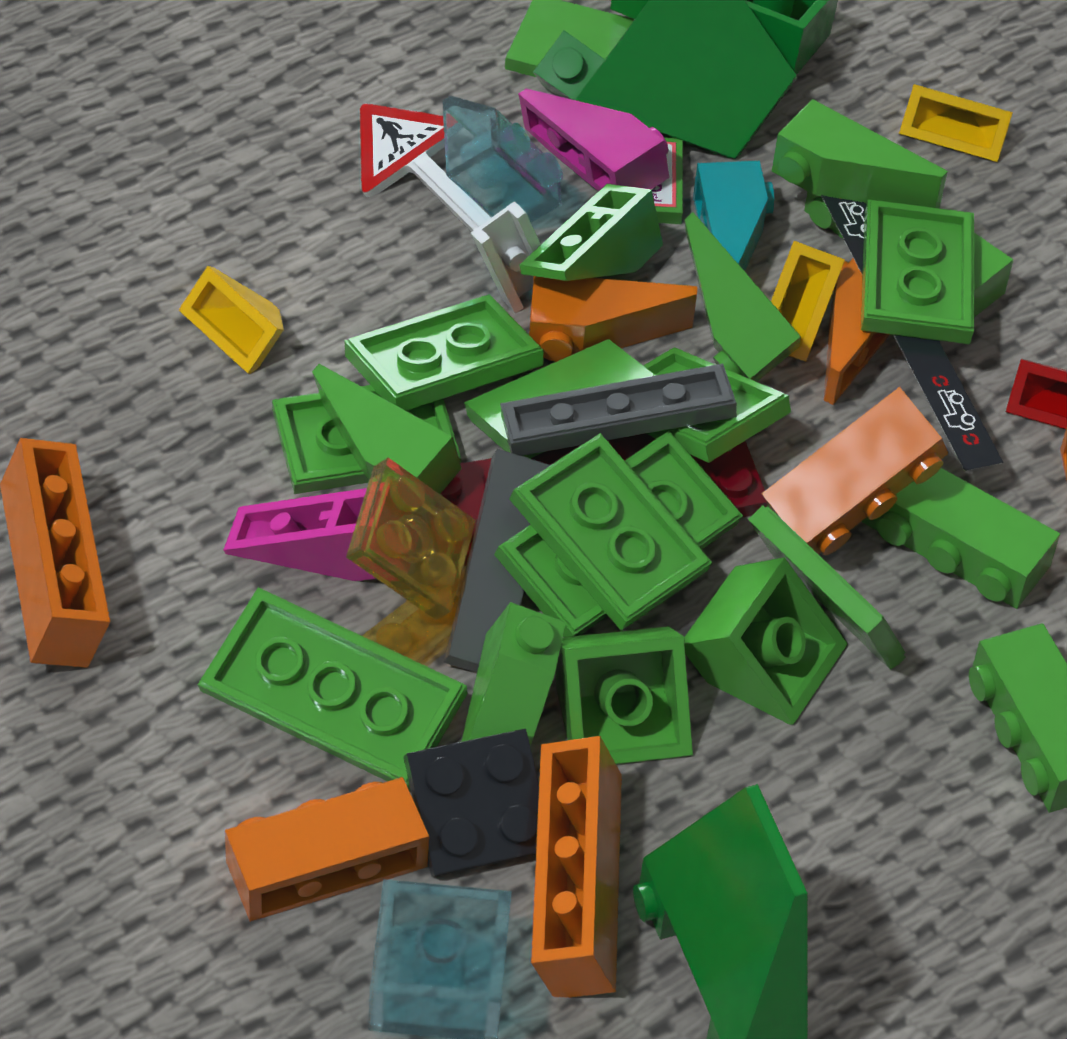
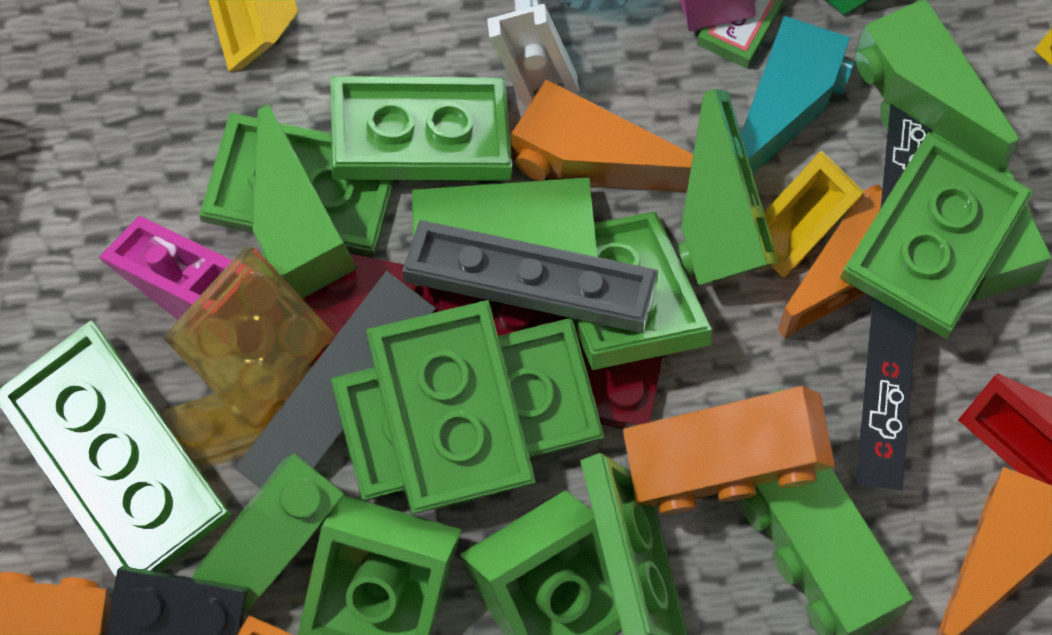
camera: 25 degrees right, 15 degrees up
(604, 238) = (630, 69): bright green slope -> none

